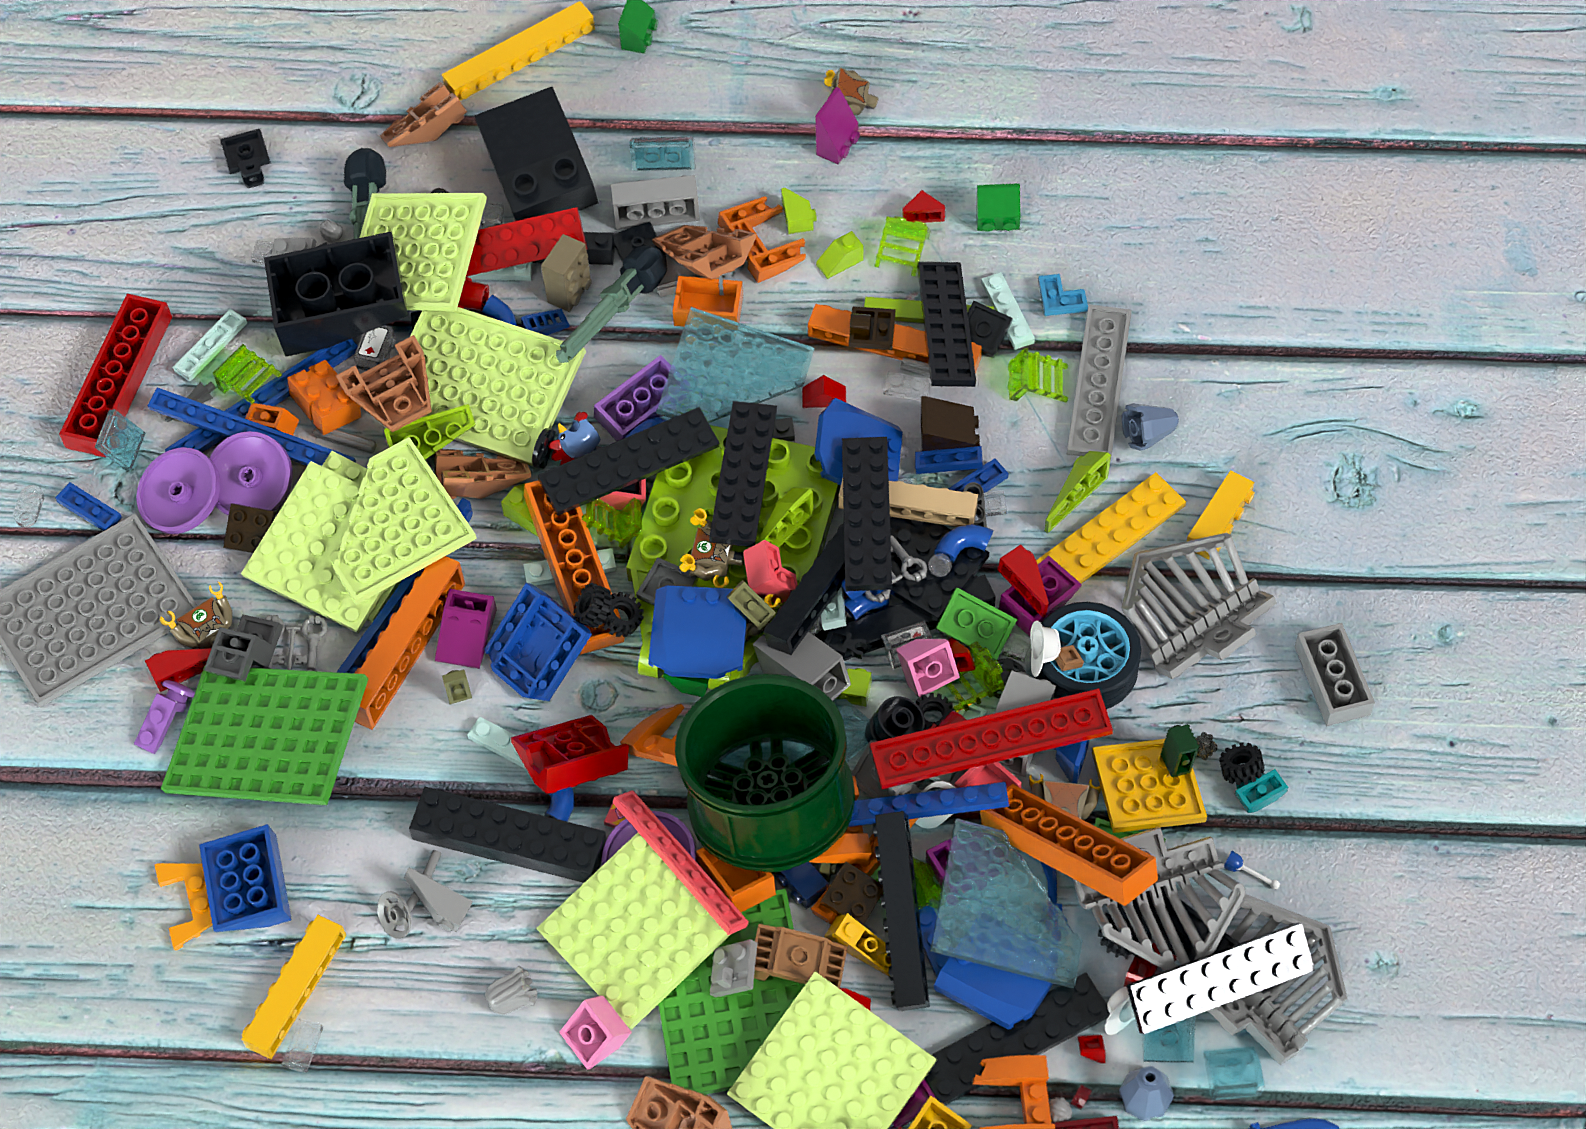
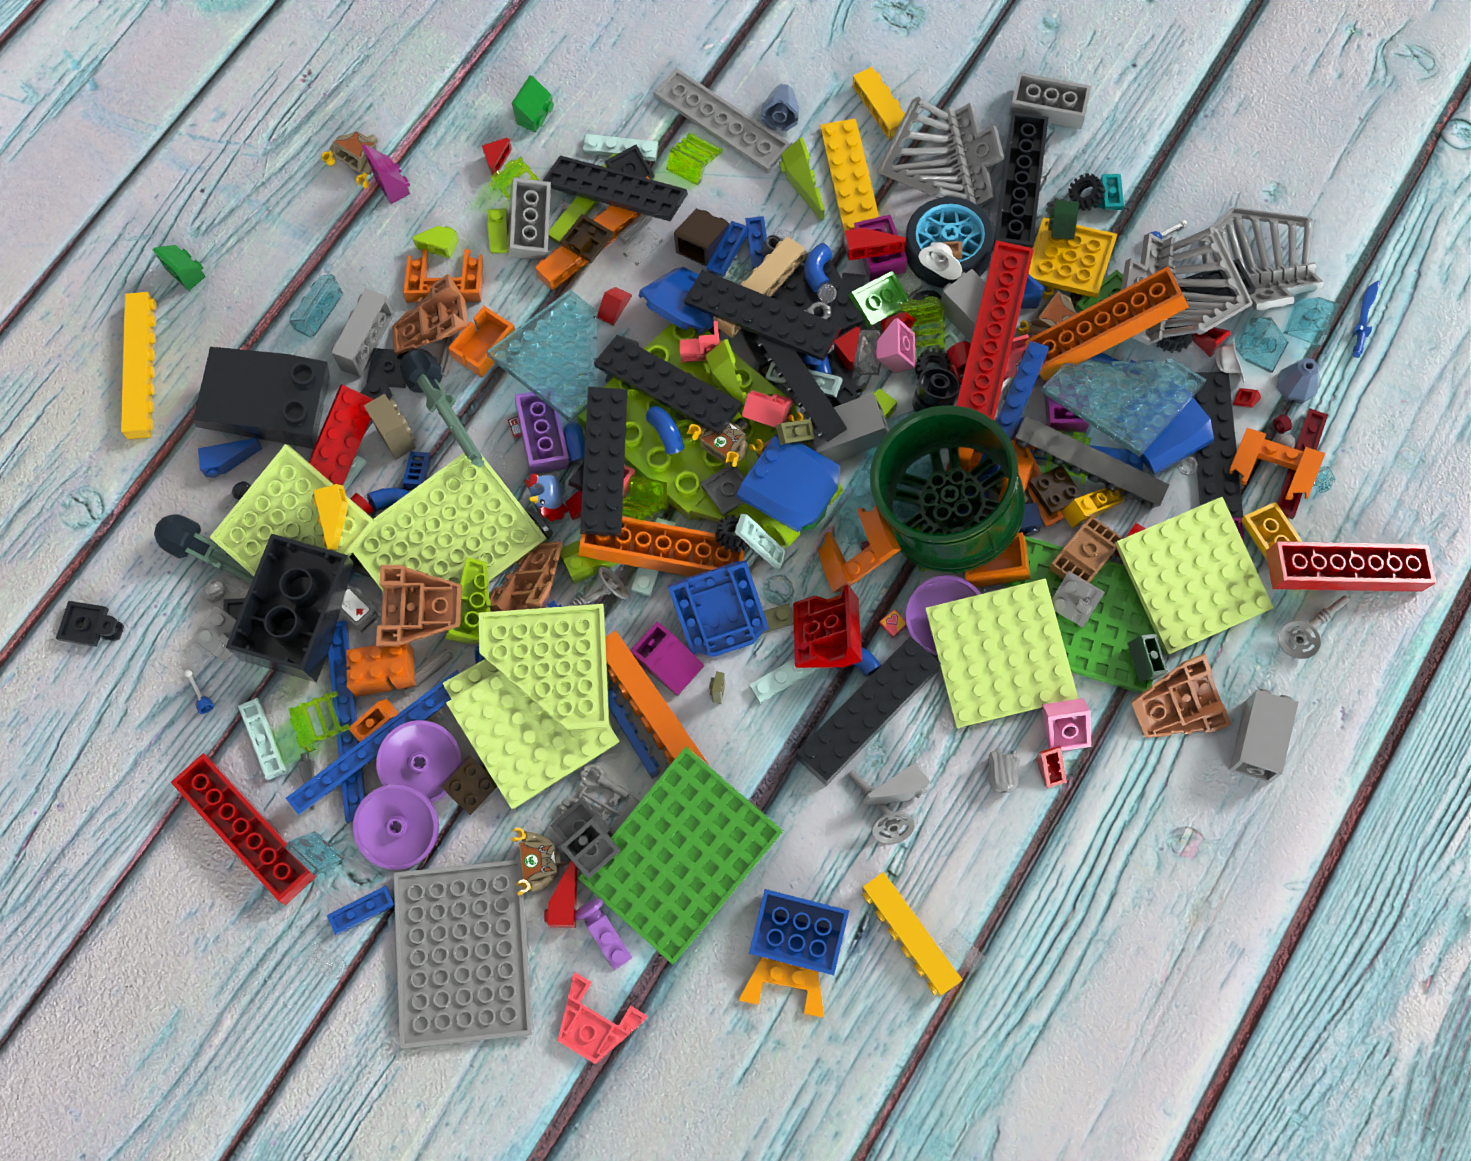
camera: 60 degrees left, 10 degrees up
(63, 751) = (588, 1031): none -> coral wing
(220, 283) = (204, 703): none -> hinge
(427, 119) = (154, 464): nougat wedge -> none
(440, 266) = (332, 512): none -> yellow slope
(467, 167) = (224, 457): none -> blue slope
(506, 541) = (610, 585): none -> light grey dish
(541, 1037) = (1052, 766): none -> red slope
(565, 706) = (779, 617): none -> olive plate
(593, 605) = (728, 540): black tyre -> none
(625, 640) = (760, 541): none -> light aqua plate
(680, 862) = (971, 593): coral tile -> none
(692, 495) = (666, 429): none -> blue cylinder
(705, 1068) = (1147, 657): none -> dark green brick
(803, 477) = (696, 349): none -> coral panel
(863, 270) = (528, 219): none -> light grey brick
(894, 617) = (846, 347): none -> red slope
(969, 1021) = (1187, 466): none -> clear plate
(1057, 301) = (634, 111): dark azure plate -> none
(1208, 692) = (1021, 179): none -> black brick
(1220, 978) = (1257, 284): plate -> none

